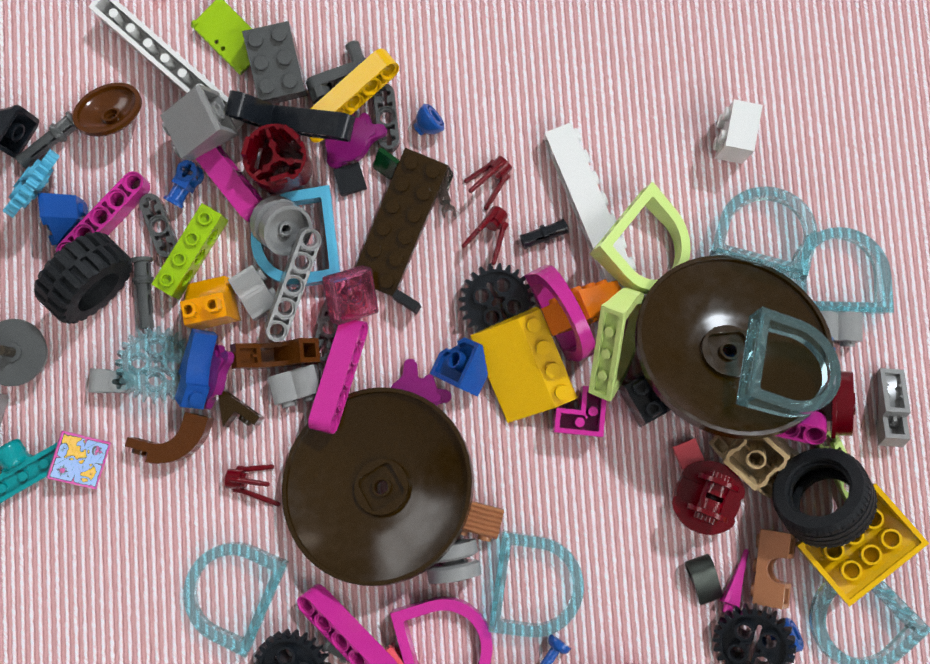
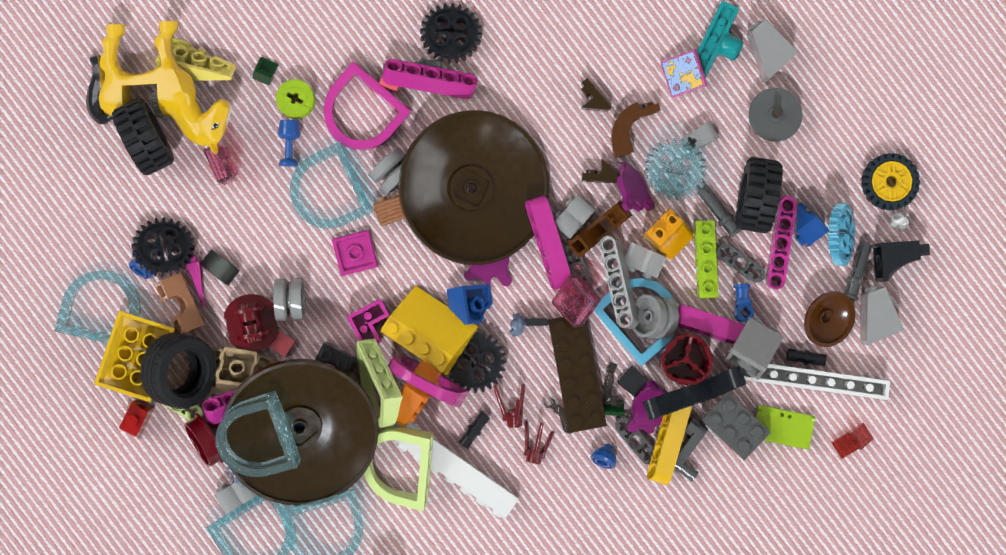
camera: 140 degrees right, 5 degrees up
(56, 80) = (877, 315): none -> light grey slope
(158, 88) = (806, 357): none -> black pin
(188, 489) = (597, 102): none -> dark brown slope
(196, 369) = (645, 183): blue slope -> none
(213, 632) = (516, 22): clear light blue window -> none
(239, 480) = (569, 129): dark red plant -> none
(384, 177) = (608, 384): none -> clear smoke arm
(428, 311) = (517, 325): none -> sand blue plate
(549, 499) = (355, 253): none -> dark pink tile
(652, 495) = (289, 298): none -> light grey wheel
(892, 408) = (165, 463): light grey slope -> none
(898, 473) = (137, 418): none -> red torso

